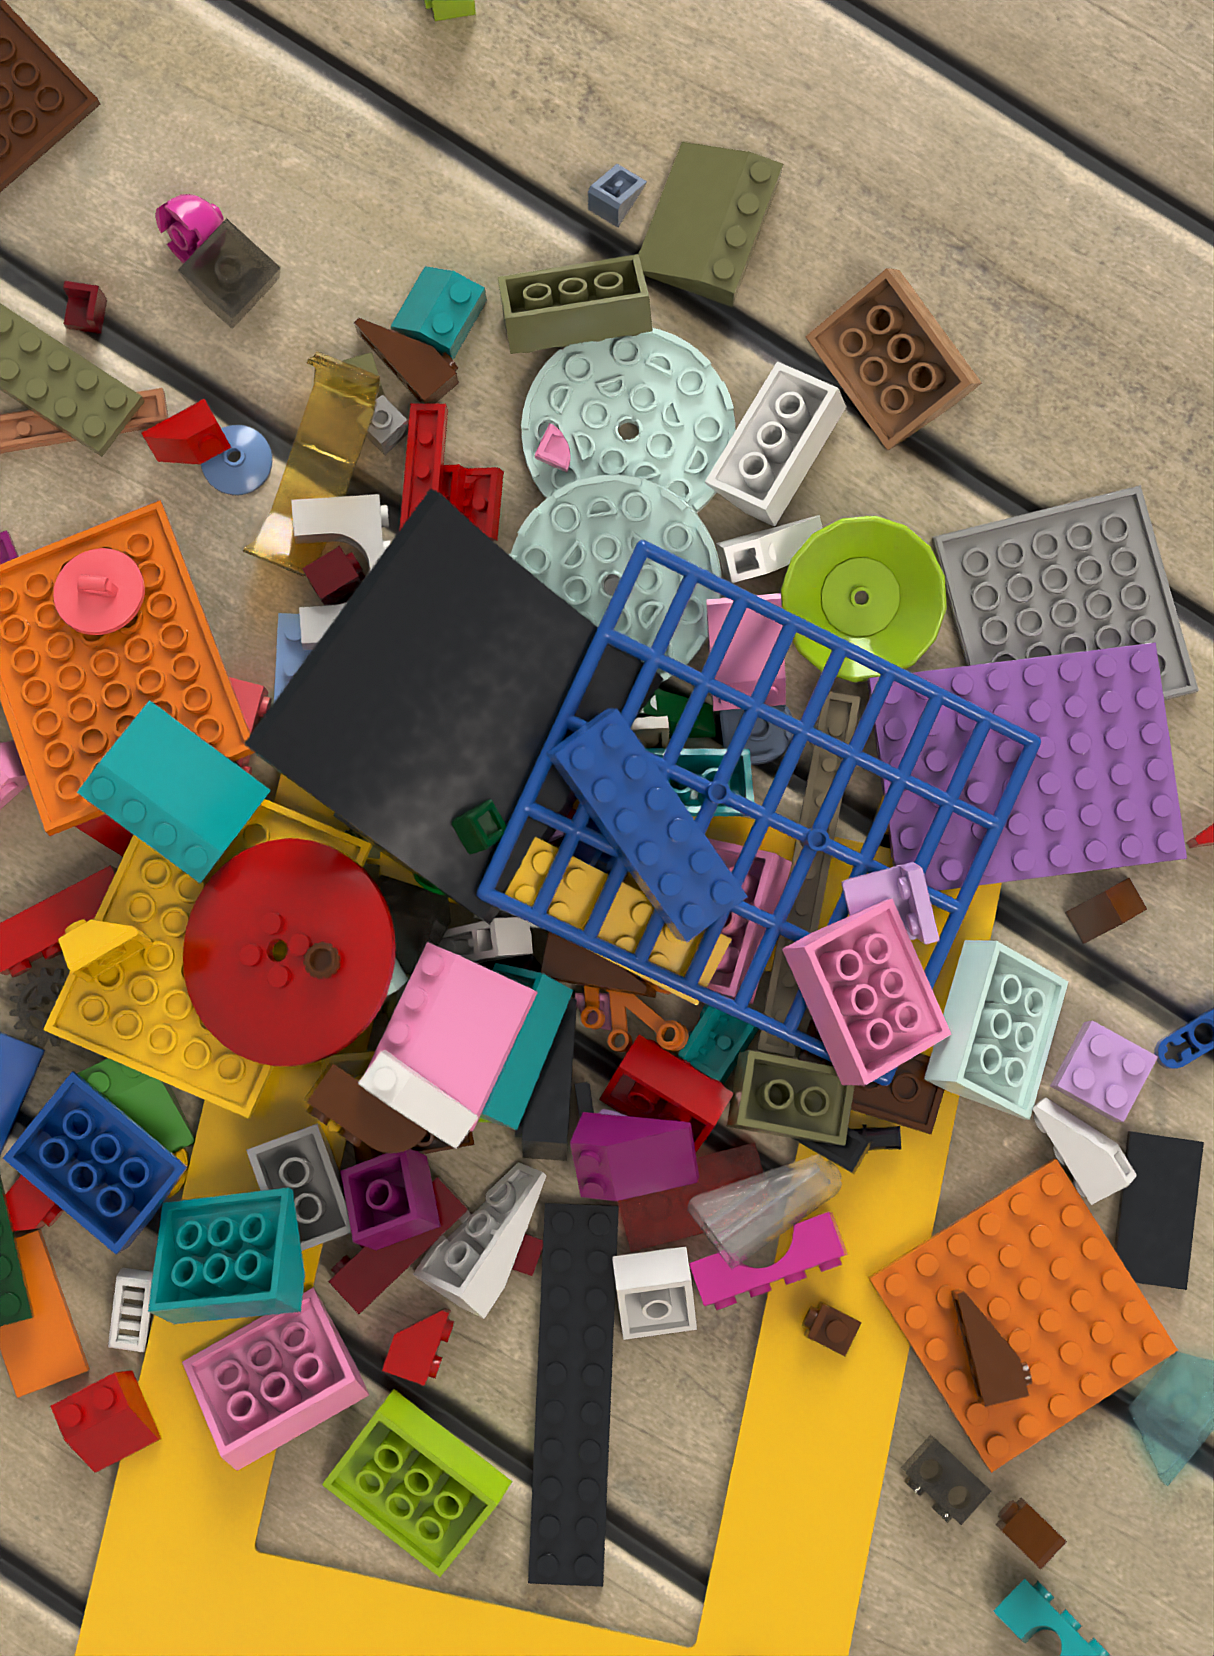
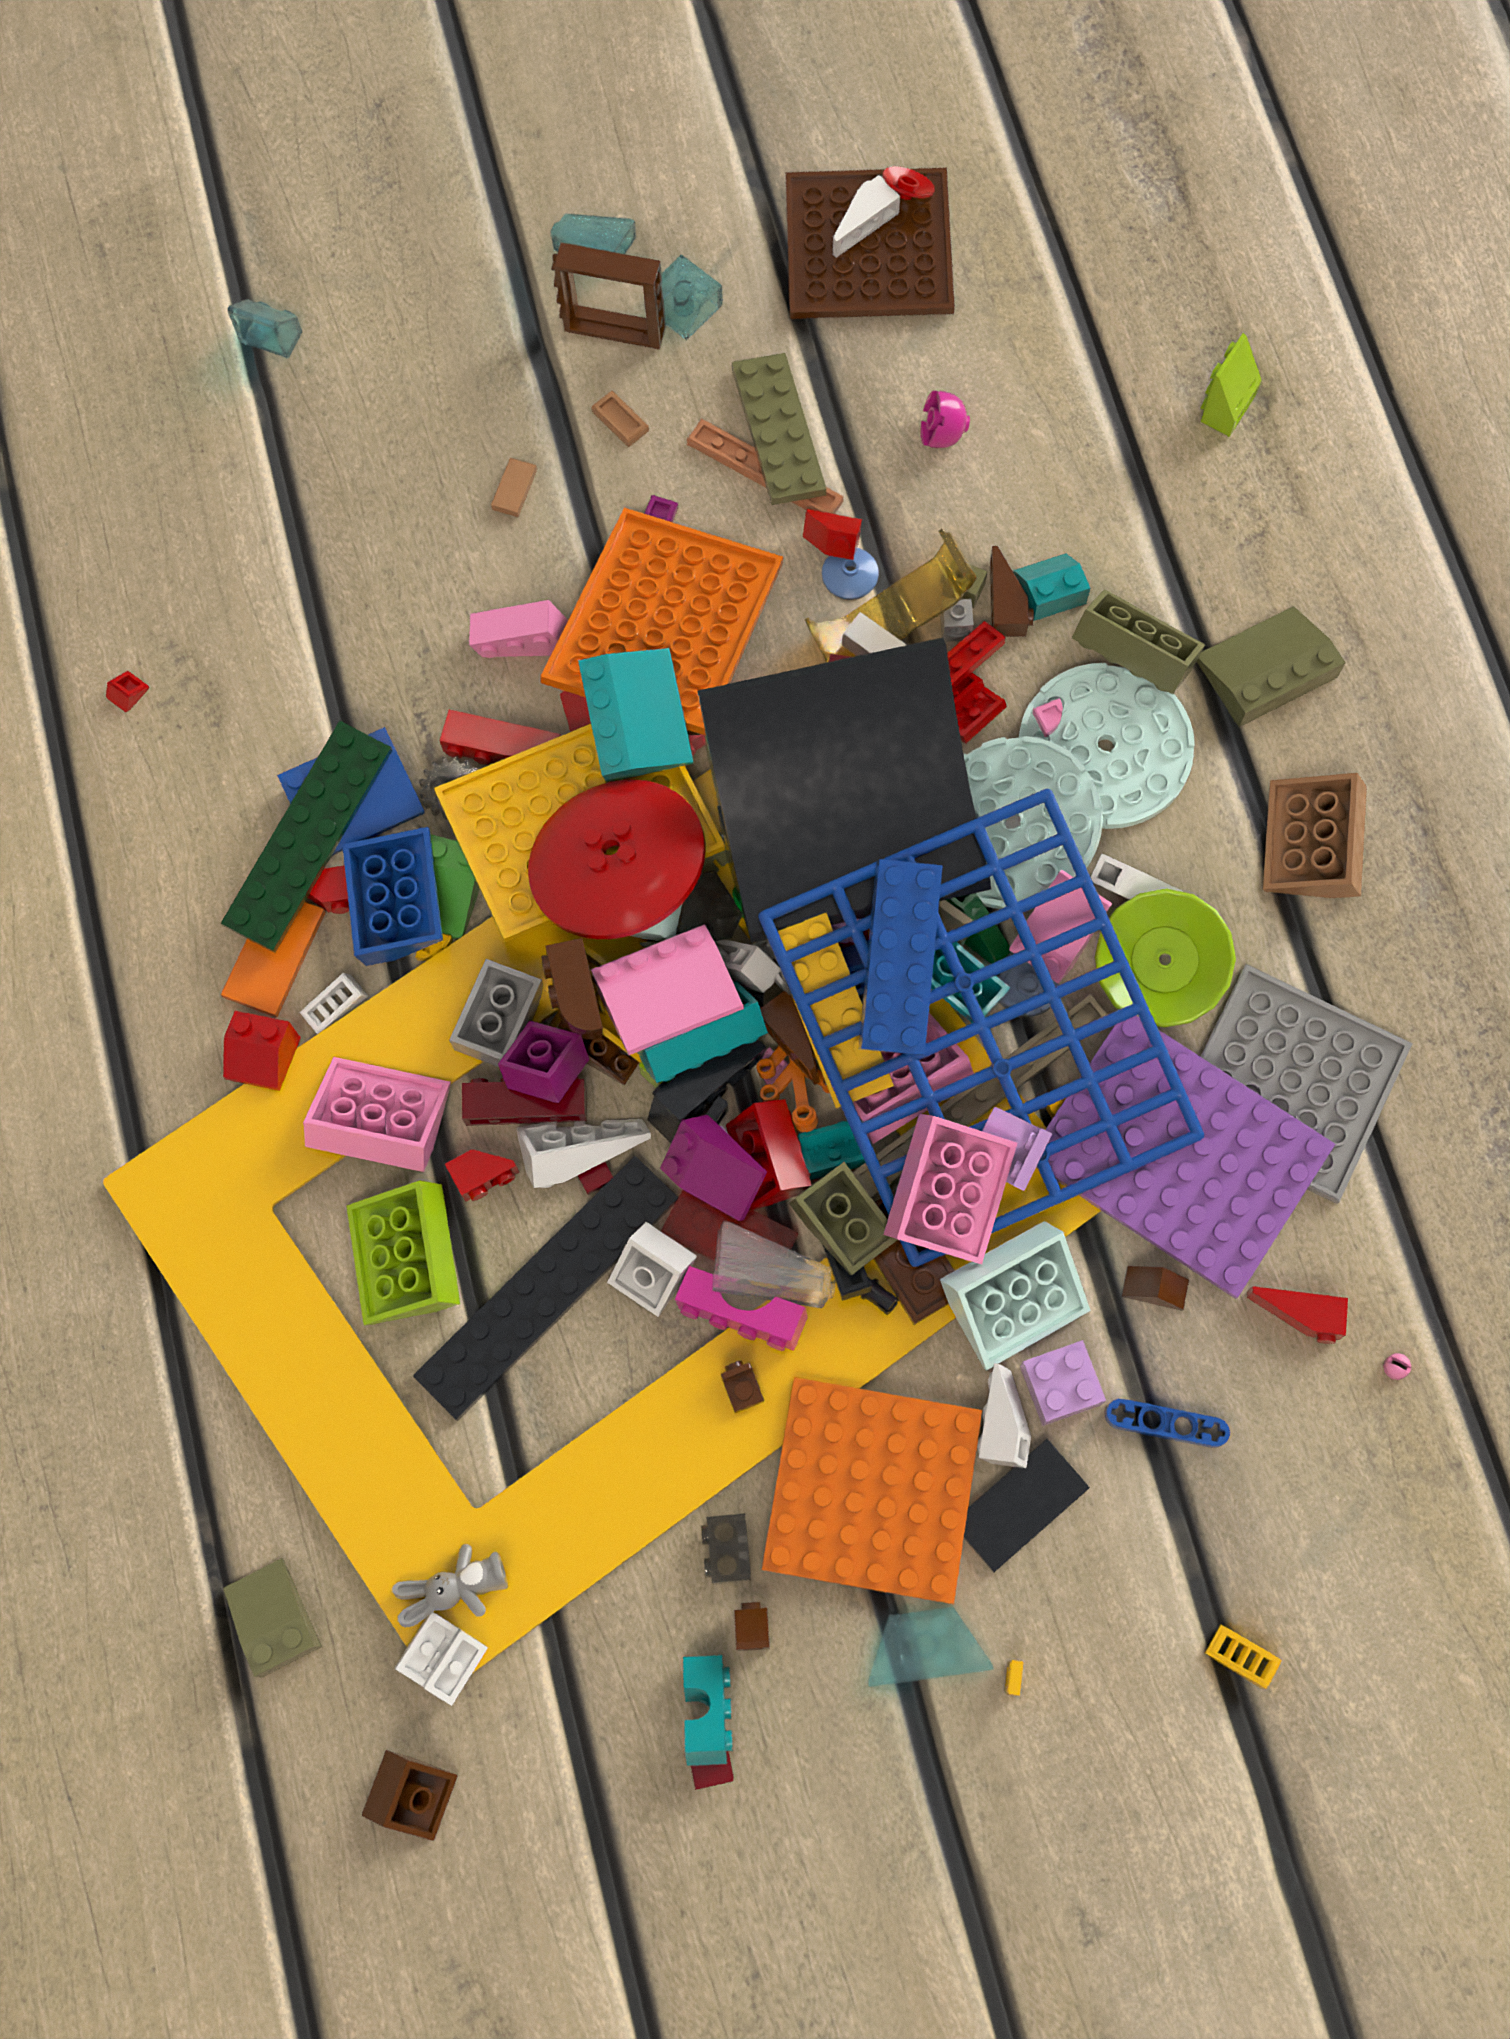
camera: 45 degrees right, 10 degrees down
(84, 307) = (840, 416): dark red panel -> none
(99, 591) = (698, 574): coral shield -> none
(99, 946) = (511, 766): yellow slope -> none
(228, 1258) = (415, 1013): teal slope -> none
(230, 273) = (942, 461): clear smoke slope -> none
(322, 960) = (630, 870): reddish brown piece -> none
(418, 1099) = (613, 1002): white slope -> none
(480, 827) = (797, 875): dark green slope -> none
(614, 194) = (1222, 602): sand blue slope -> none
(776, 443) = (1193, 825): white slope -> none
(992, 1362) = (825, 1494): reddish brown slope -> none

